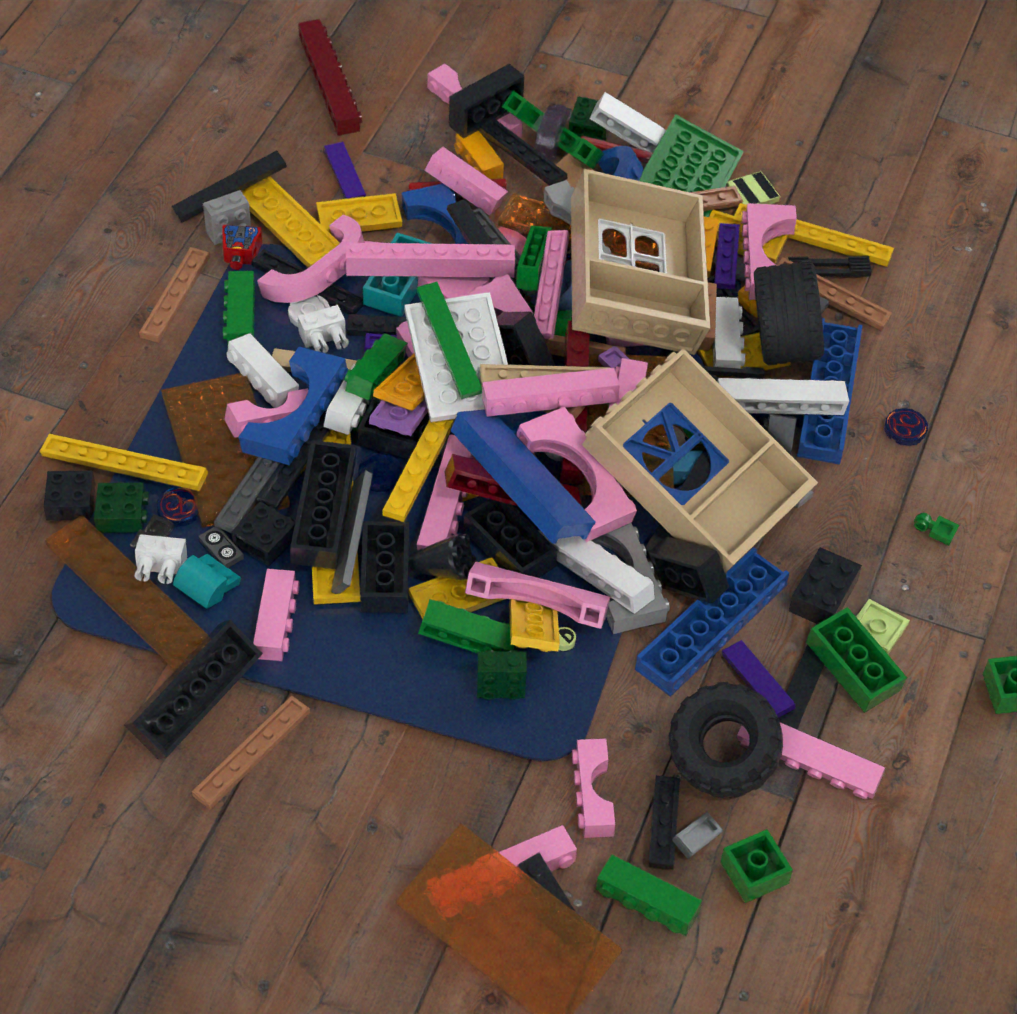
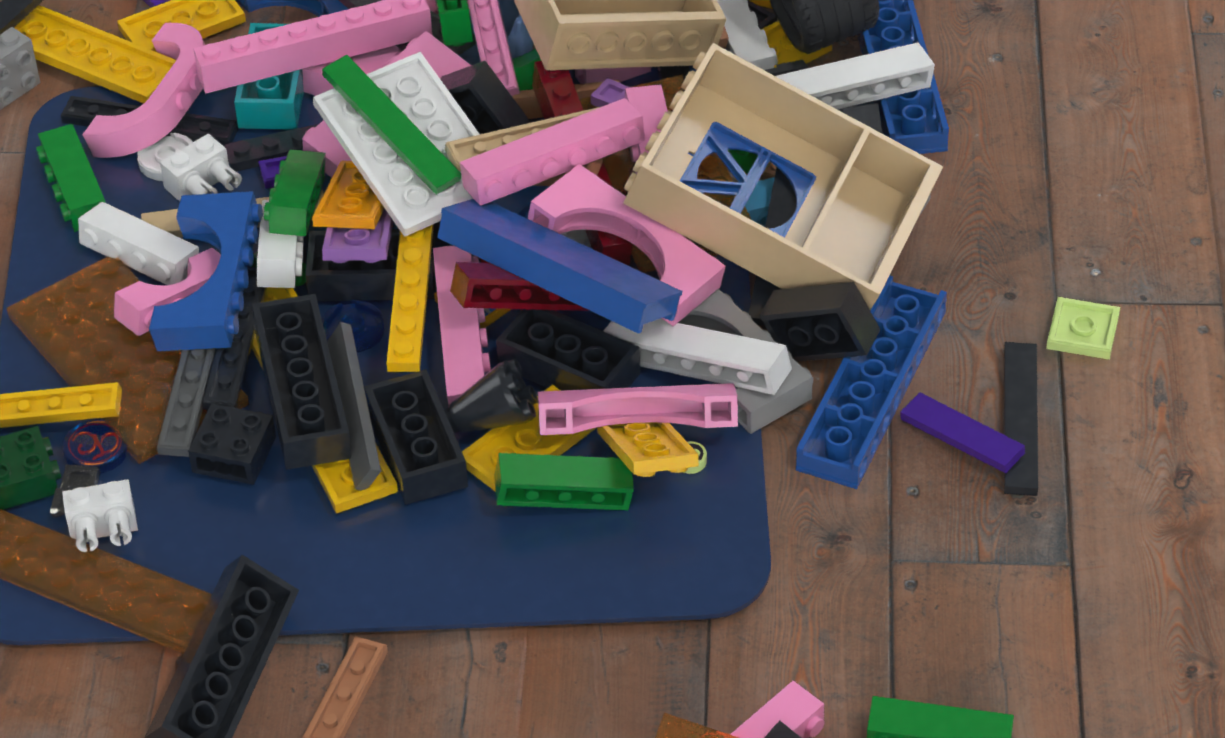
camera: 15 degrees left, 5 degrees down
(205, 580) = (174, 525): teal brick -> none
(221, 547) = (177, 480): tile -> none
(241, 244) = (36, 98): torso -> none
(275, 614) = (290, 537): bright pink brick -> none
(501, 674) = (632, 521): dark green brick -> none
(597, 814) = (826, 656): bright pink arch -> none
(664, 822) = (919, 640): black plate -> none
(697, 835) = (969, 641): tile -> none
(717, 705) = (952, 464): black tyre -> none
(756, 866) = (1062, 653): green brick -> none
(824, 586) = (998, 298): black brick -> none
(826, 761) = (1070, 500): bright pink brick -> none
(856, 659) = (1077, 370): green brick -> none
(906, 426) = (1011, 82): clear blue tile -> none
(941, 530) = (1111, 188): green plate -> none

